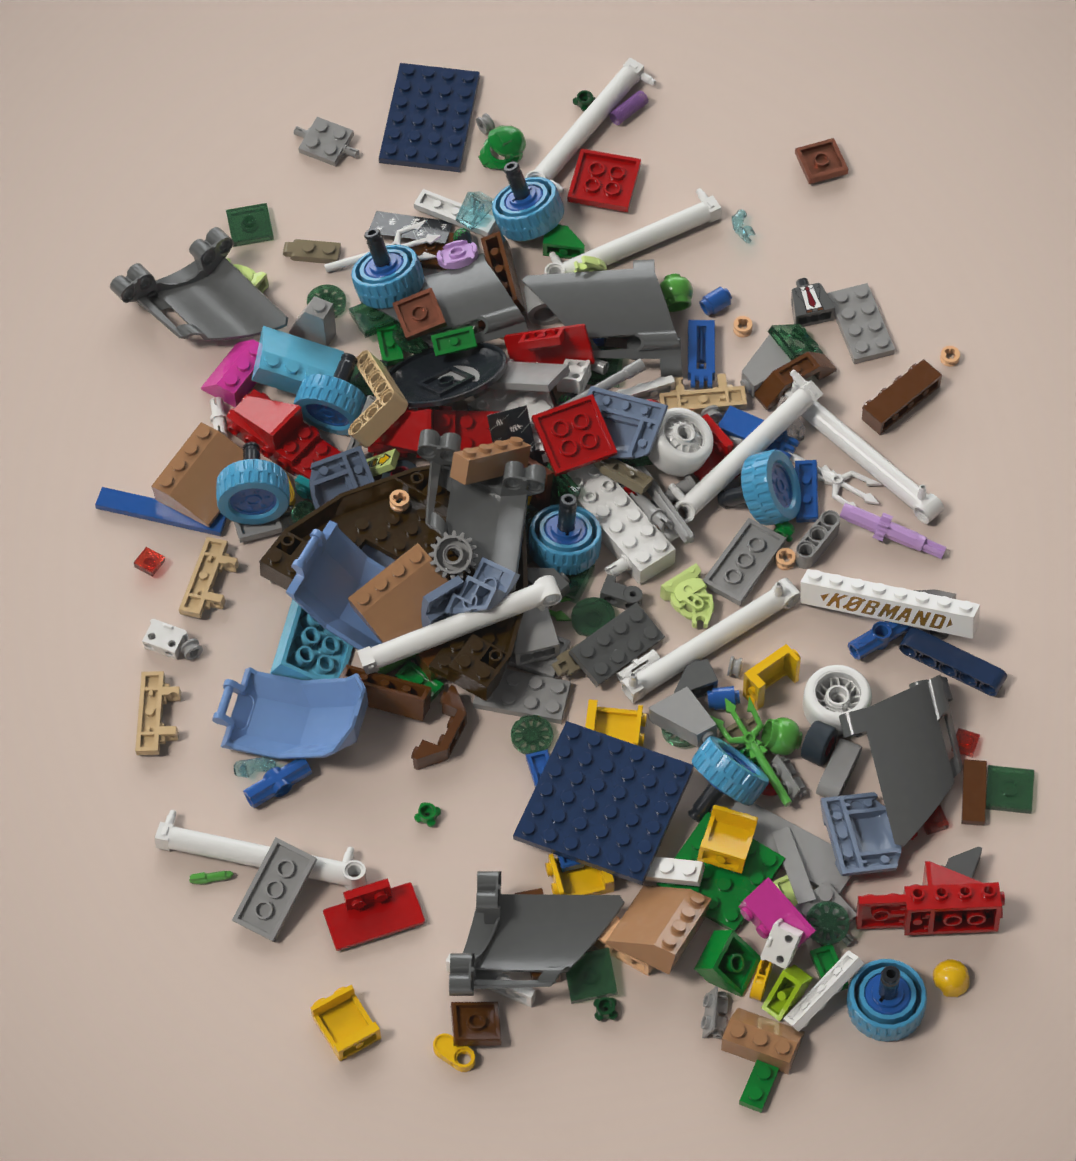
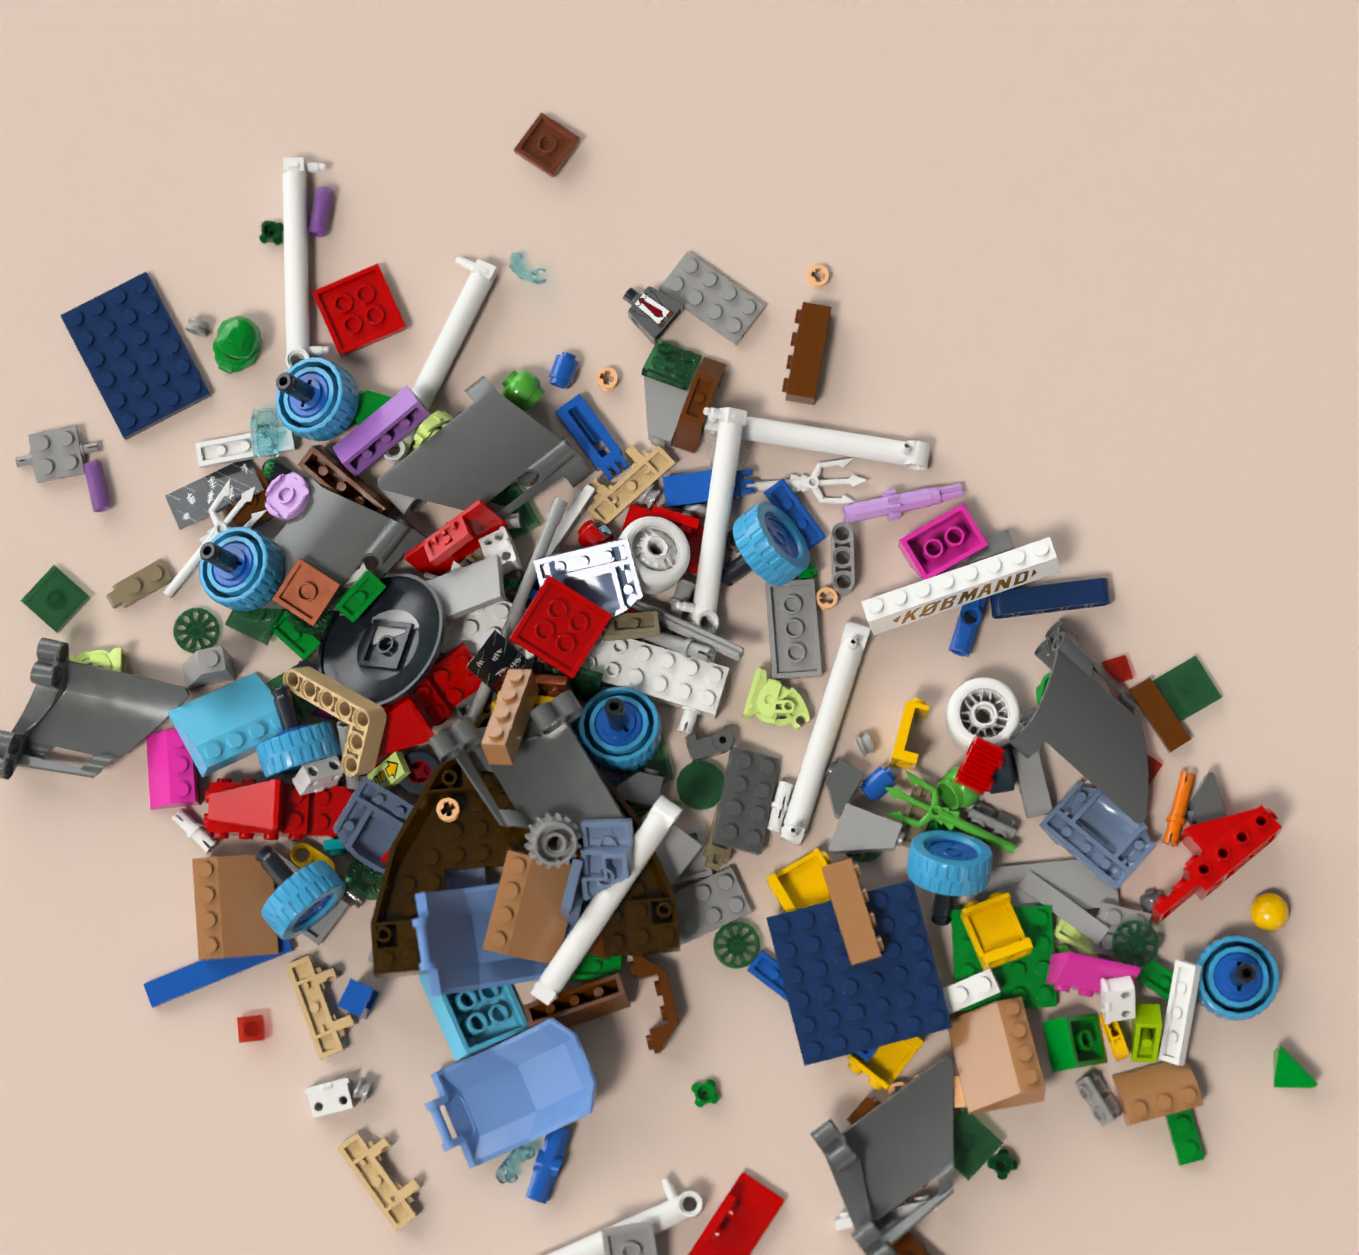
camera: 35 degrees left, 20 degrees up
(235, 586) = (358, 999): none -> blue panel
(329, 429) = (318, 775): none -> white piece
(335, 175) = (99, 490): none -> medium lavender piece
(553, 251) = (381, 431): none -> medium lavender brick
(629, 750) = (851, 912): none -> medium nougat brick
(804, 718) = (979, 765): none -> red brick
(876, 1096) = (1289, 1073): none -> green slope
(900, 567) = (942, 543): none -> dark pink slope
(940, 858) = (1179, 808): none -> orange pin

